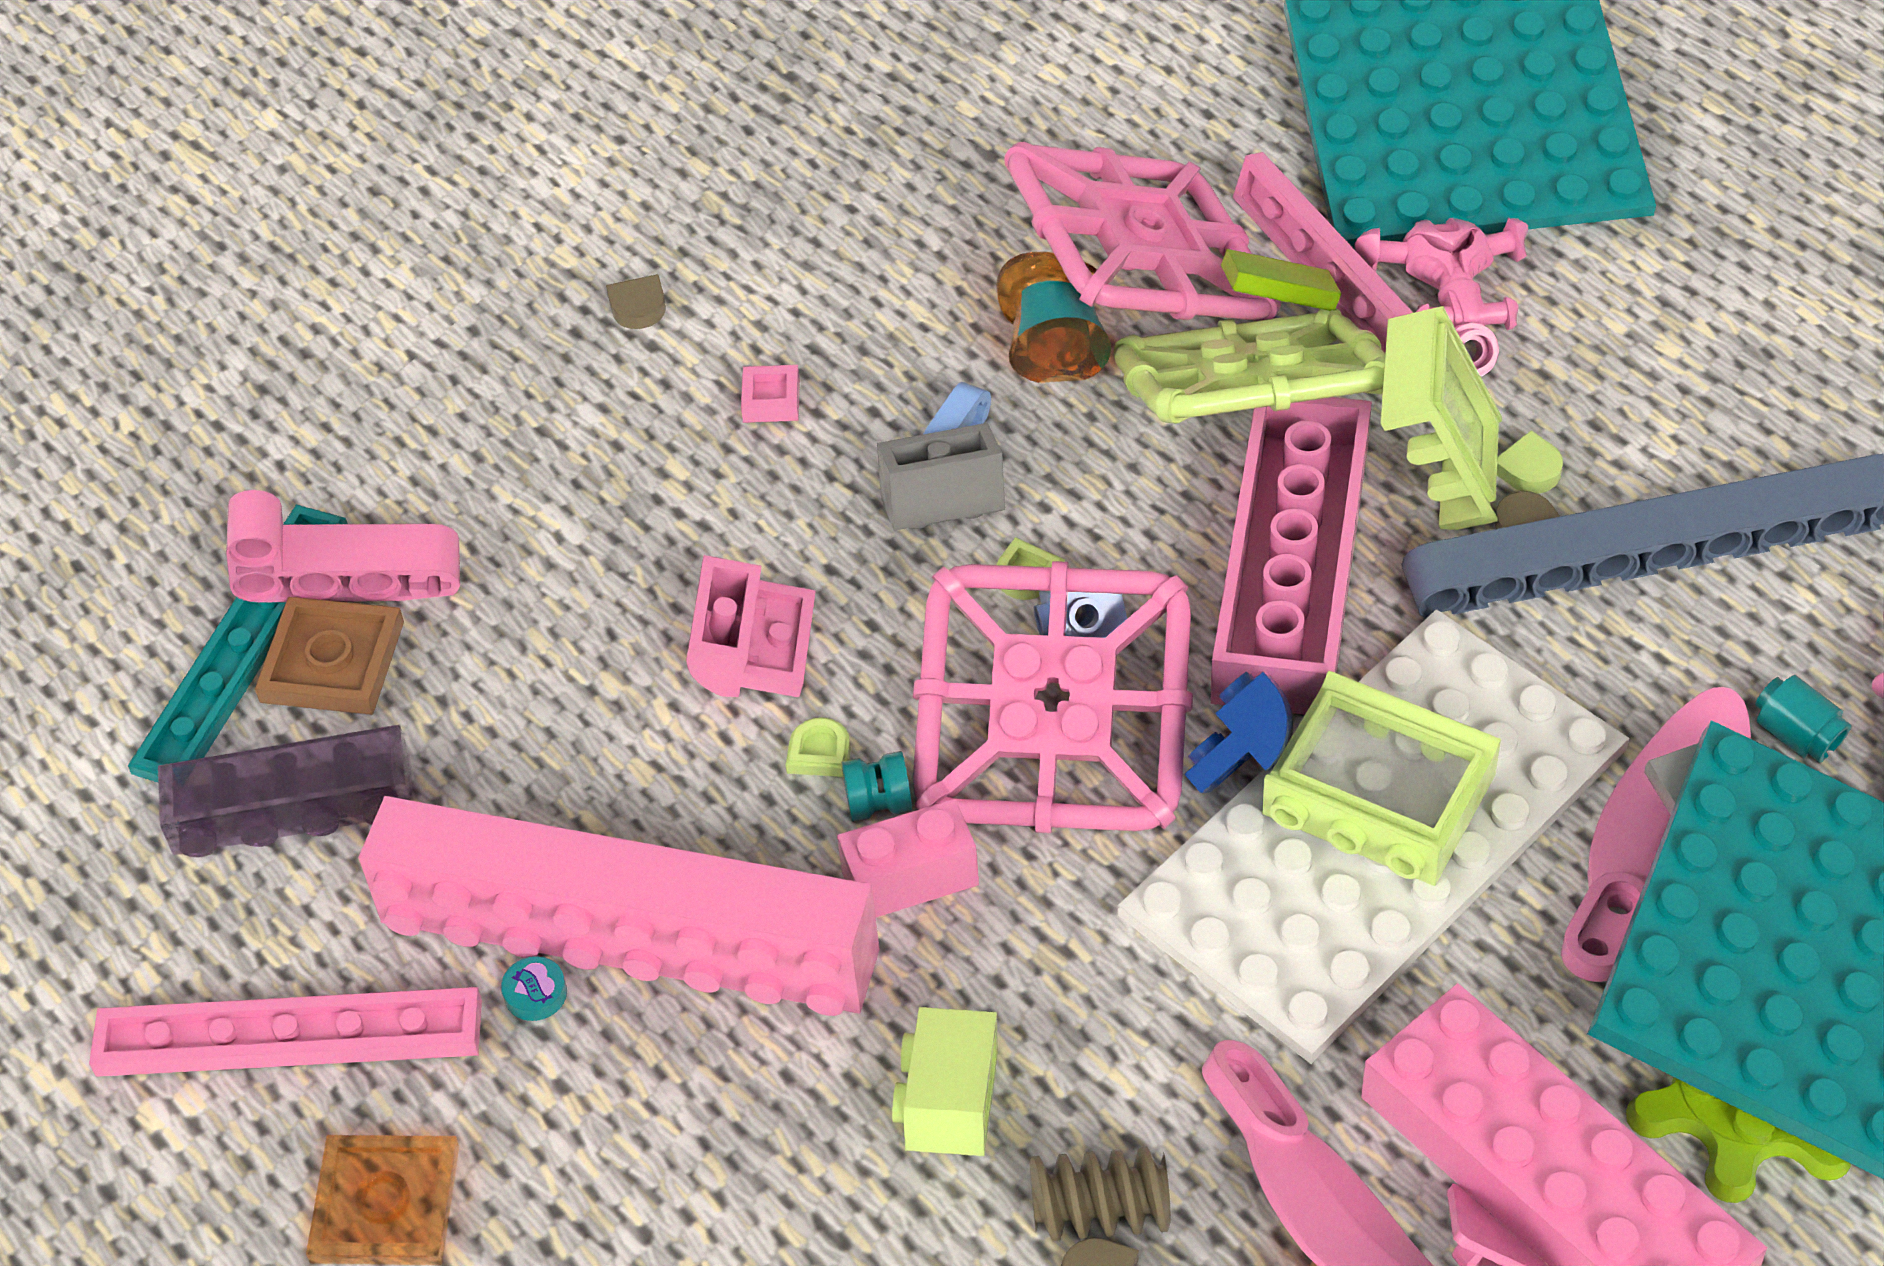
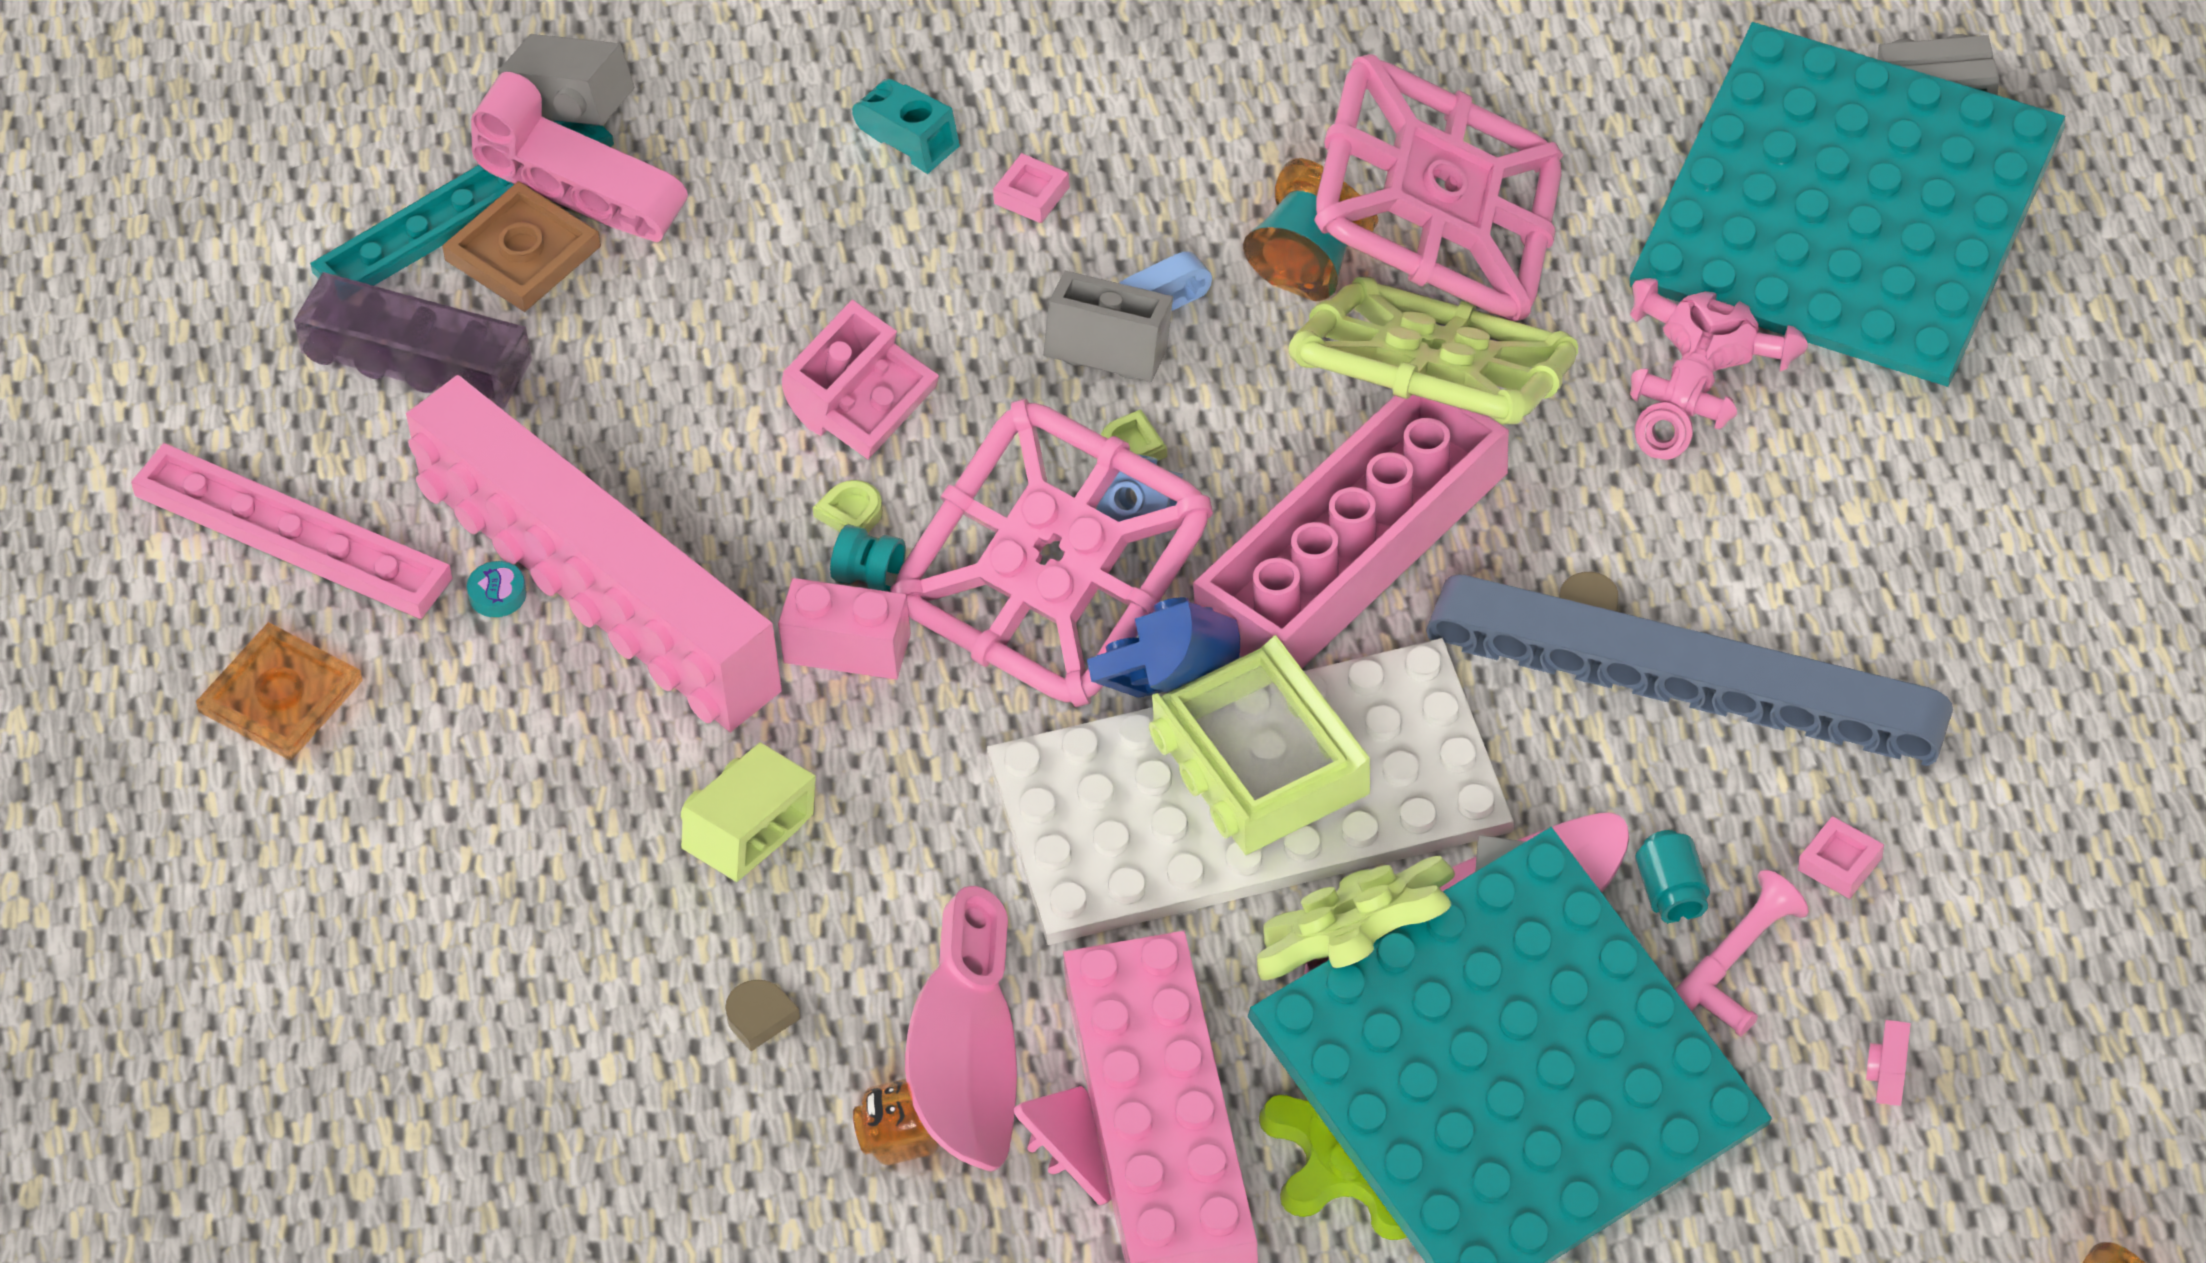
camera: 30 degrees right, 0 degrees up
(291, 467) = (575, 76): none -> light grey brick
(617, 385) = (908, 123): none -> teal leg
(637, 302) = (984, 54): dark tan tile -> none
(1100, 1193) = (797, 956): dark tan piece -> none
(1280, 280) = (1531, 287): lime tile -> none
(1312, 241) = (1602, 315): bright pink plate -> none
(1437, 382) = (1555, 468): yellowish green window -> none
(1530, 464) = (1634, 556): yellowish green tile -> none
(1626, 875) = (1352, 918): none -> yellowish green plate

